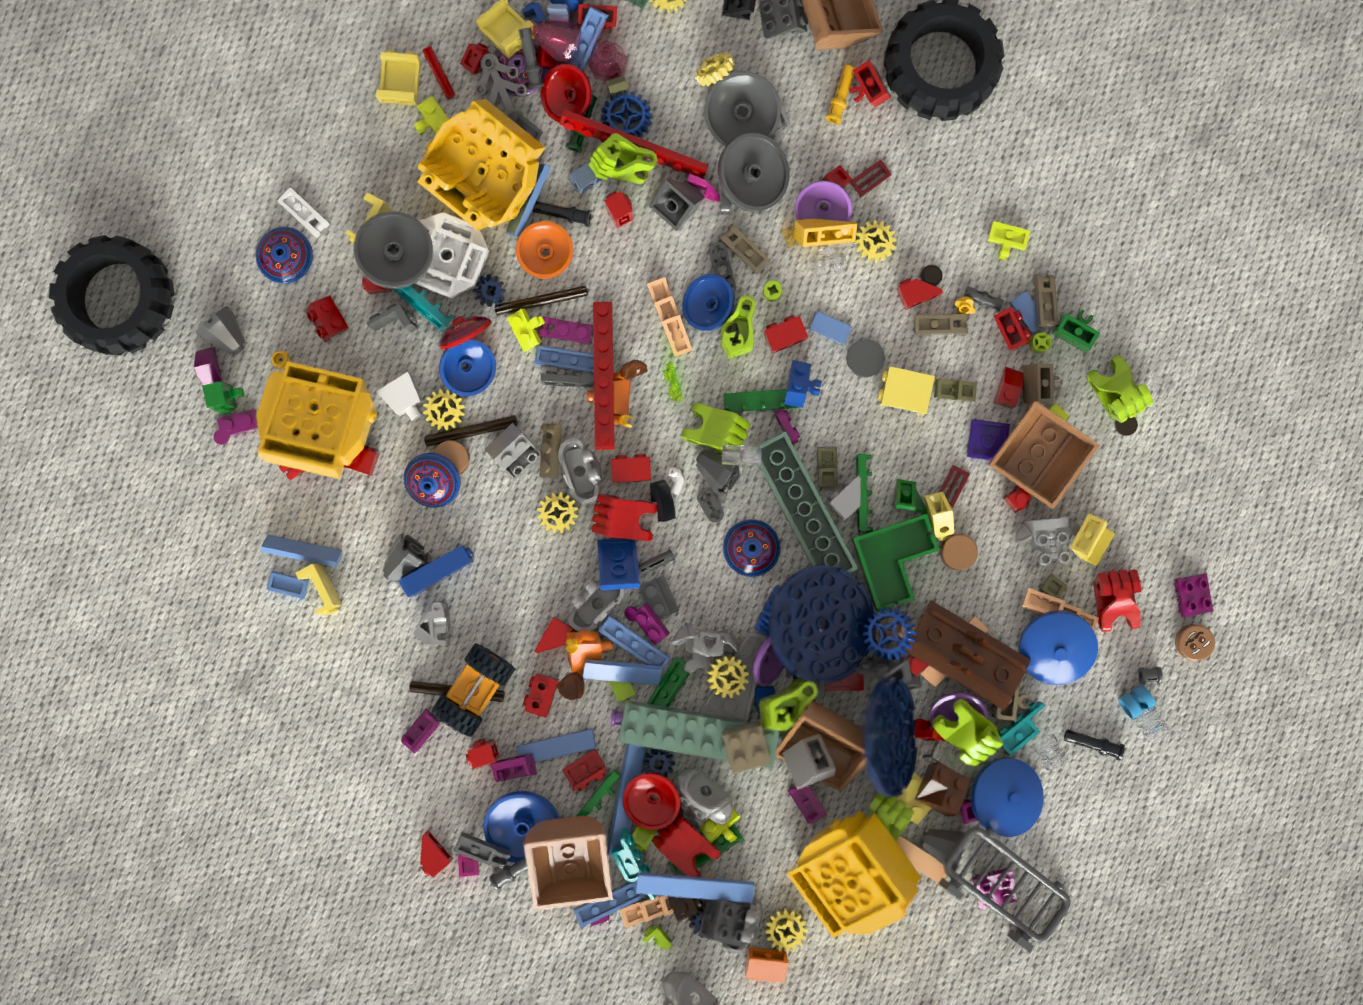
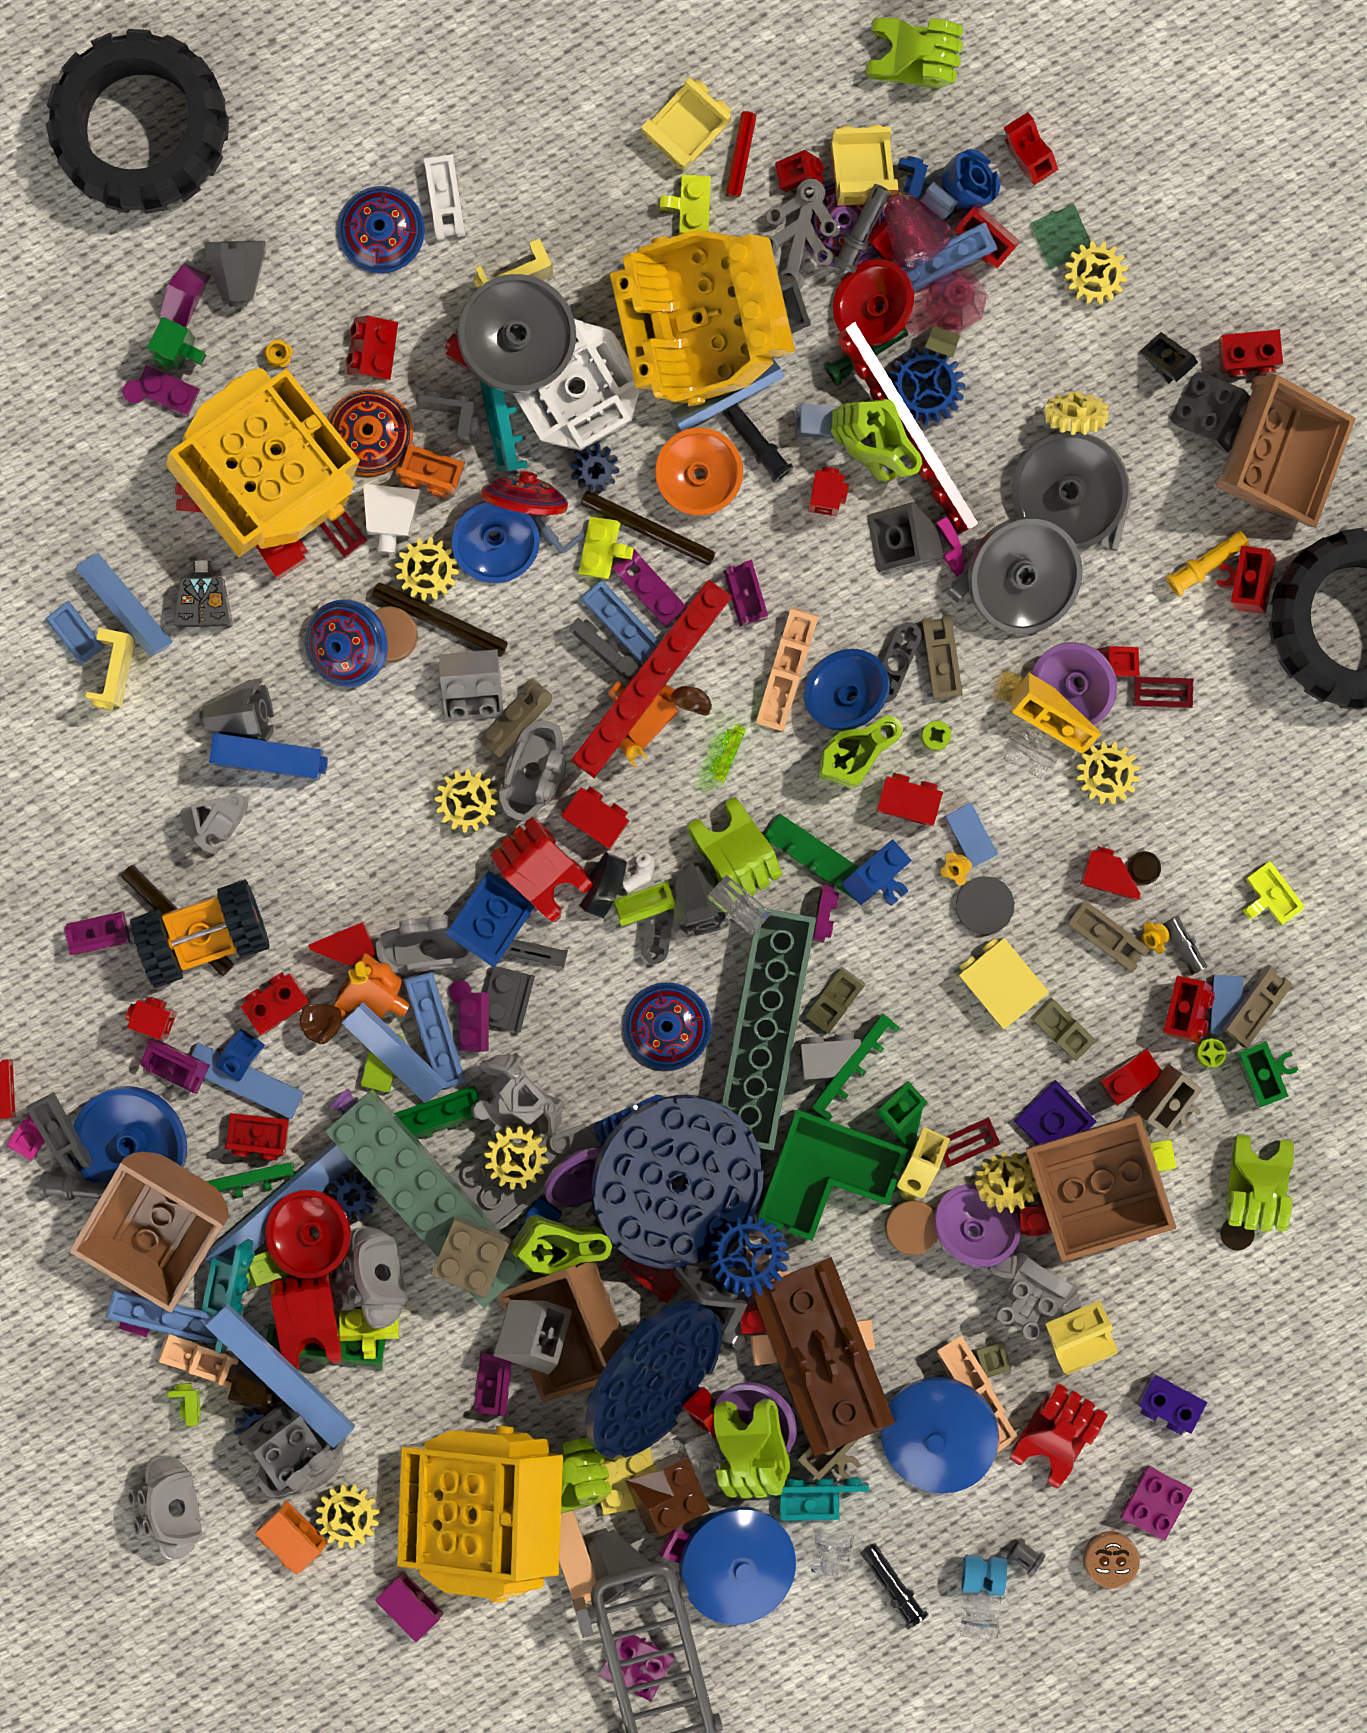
camera: 30 degrees right, 0 degrees up
(340, 516) = (202, 600): none -> dark grey torso
(372, 358) = (391, 432): none -> dish
(397, 427) = (353, 545): none -> dark red tile
(406, 358) = (430, 470): none -> orange bracket
(496, 344) = (551, 538): none -> sand blue piece
(543, 735) = (239, 1055): none -> blue bracket
(617, 294) = (745, 593): none -> magenta hinge
(690, 494) = (644, 903): none -> lime tile
(831, 347) = (963, 865): none -> yellow plate
(855, 951) = (409, 1606): none -> magenta hinge
(983, 497) = (993, 1181): none -> light yellow gear
(993, 516) = (995, 1232): none -> medium lavender dish
(1162, 538) = (1170, 1403): none -> dark purple brick

